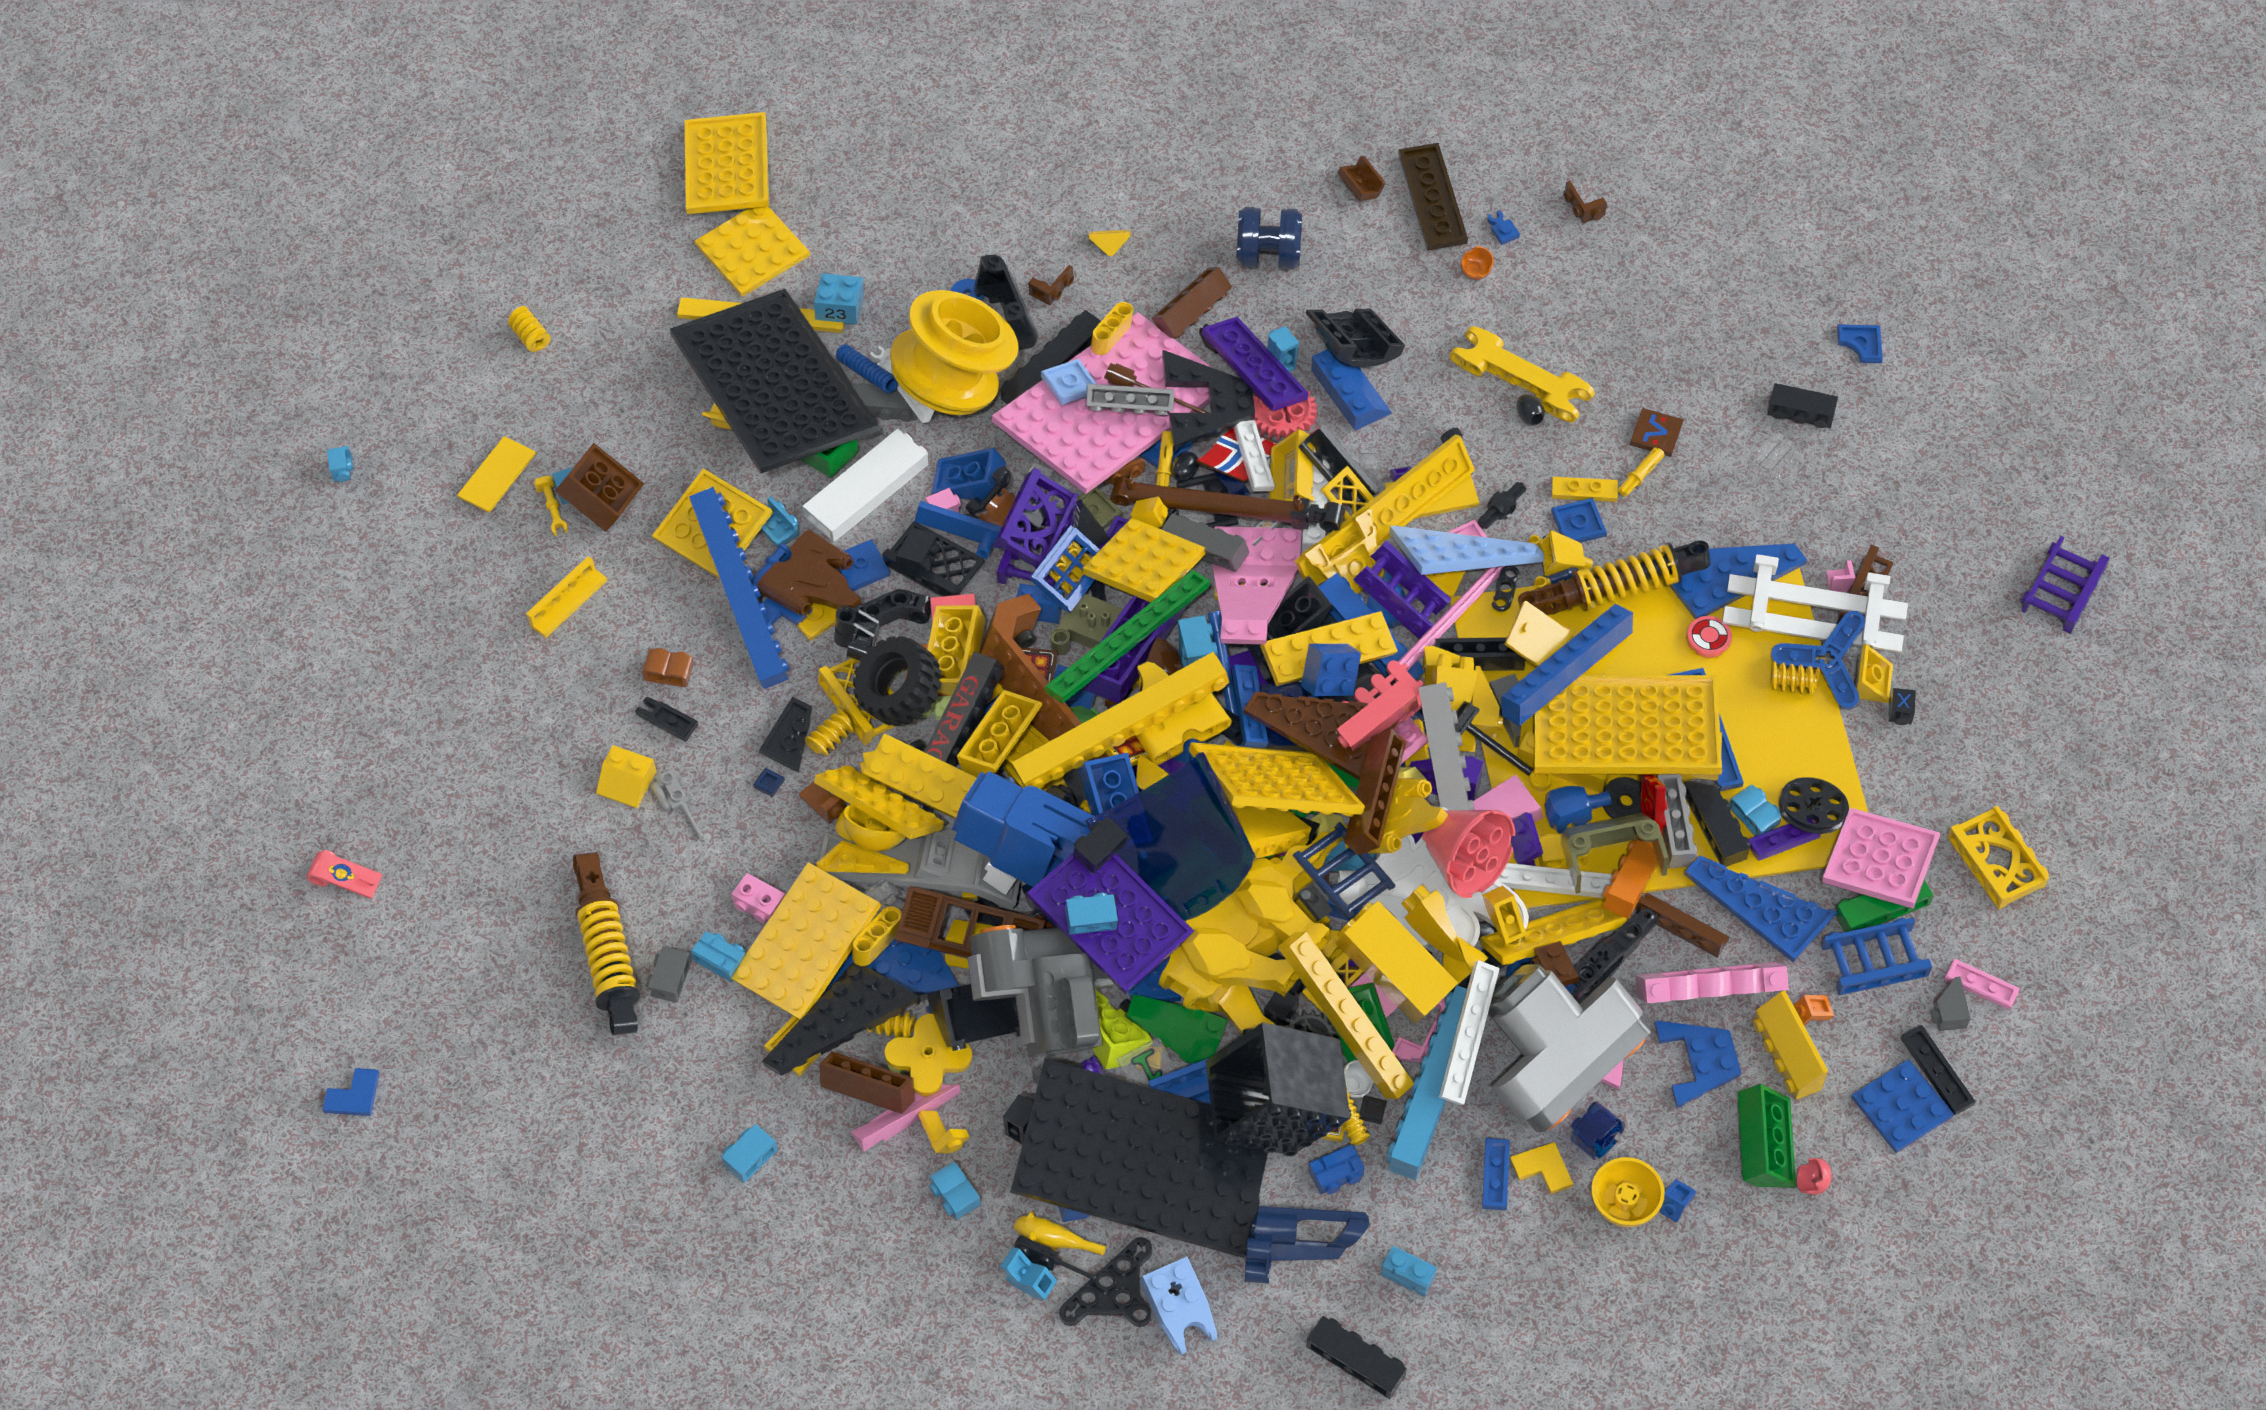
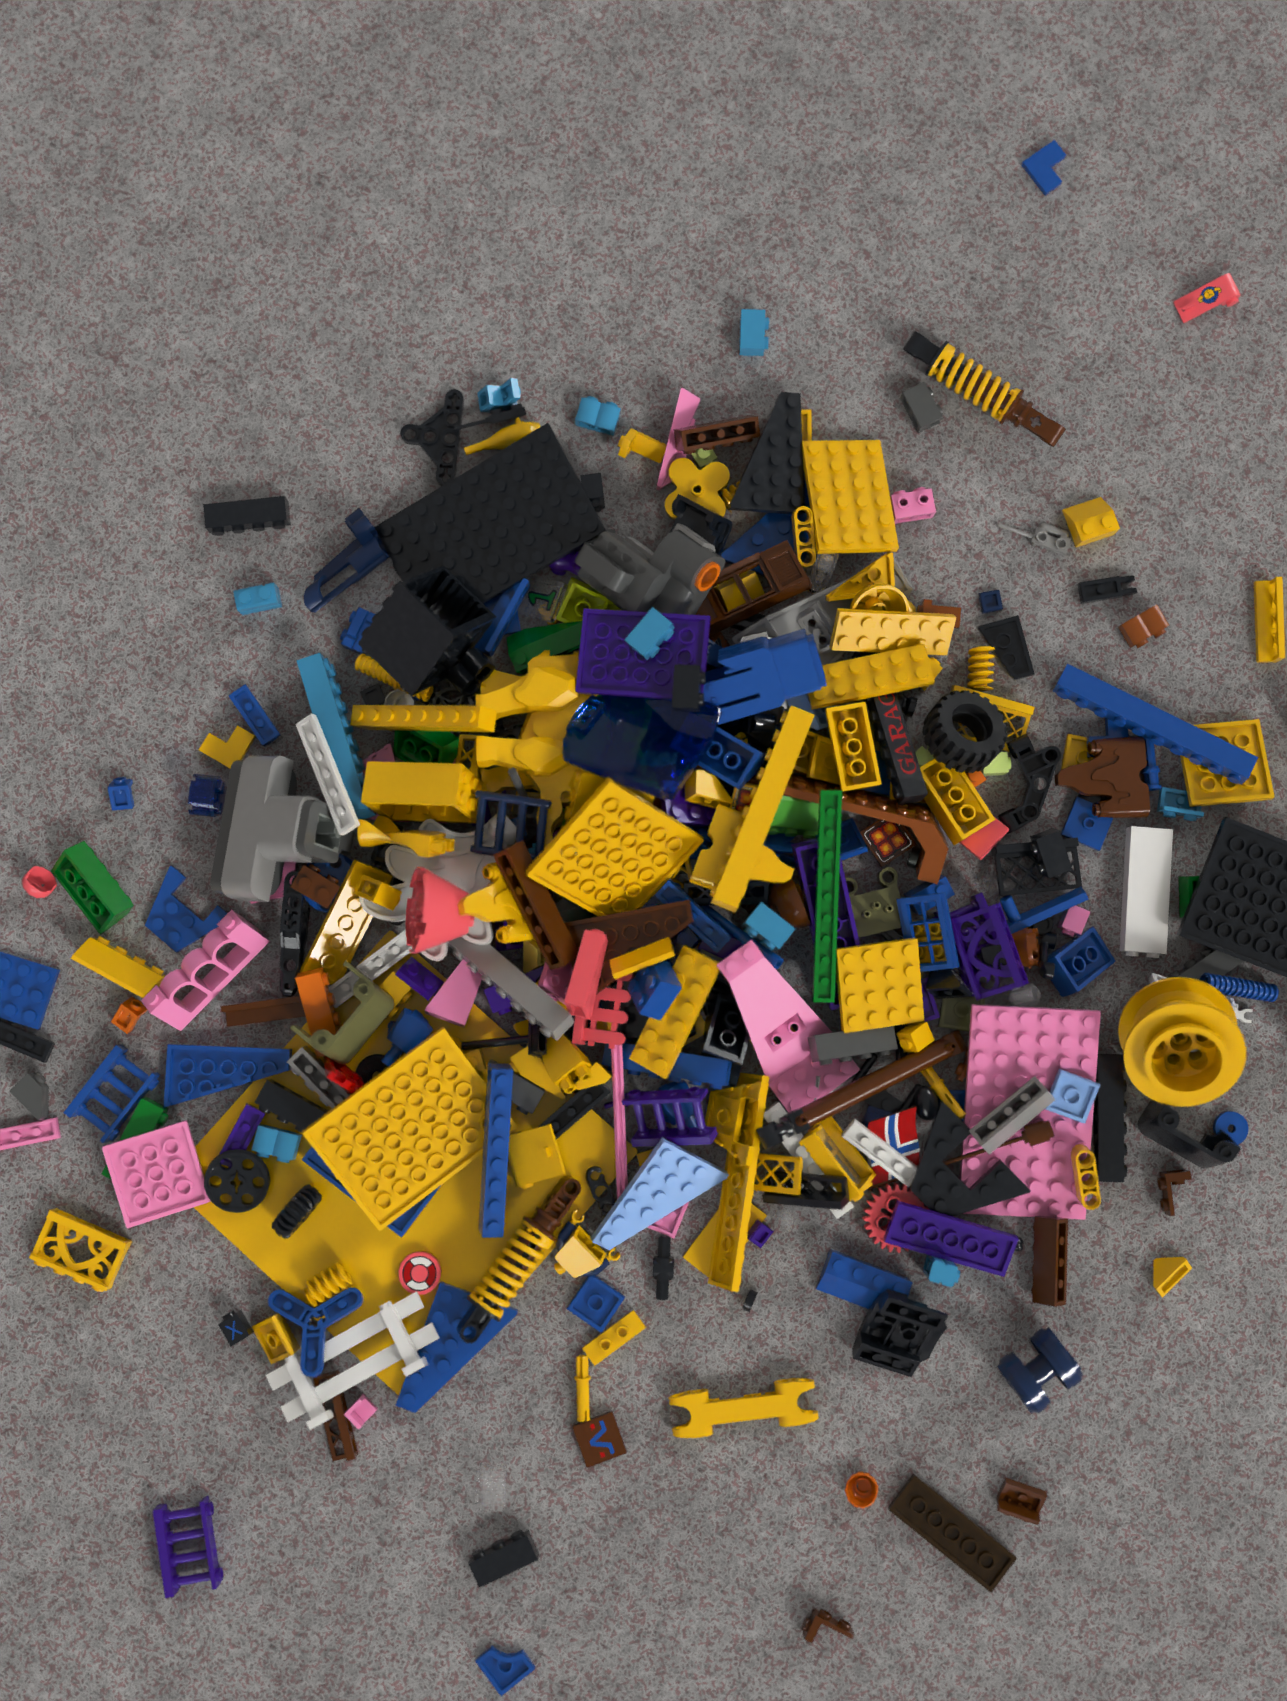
camera: 140 degrees right, 25 degrees up
(718, 955) = (901, 447): dark azure brick -> none
(1178, 1311) = (389, 456): light blue brick -> none
(1322, 693) = (641, 958): none -> yellow tile
(1503, 230) = (869, 1546): blue plate -> none
(1530, 409) = (710, 1377): black animal -> none
(1627, 1181) = (141, 757): yellow piece -> none
(1778, 742) = (296, 1211): none -> black gear

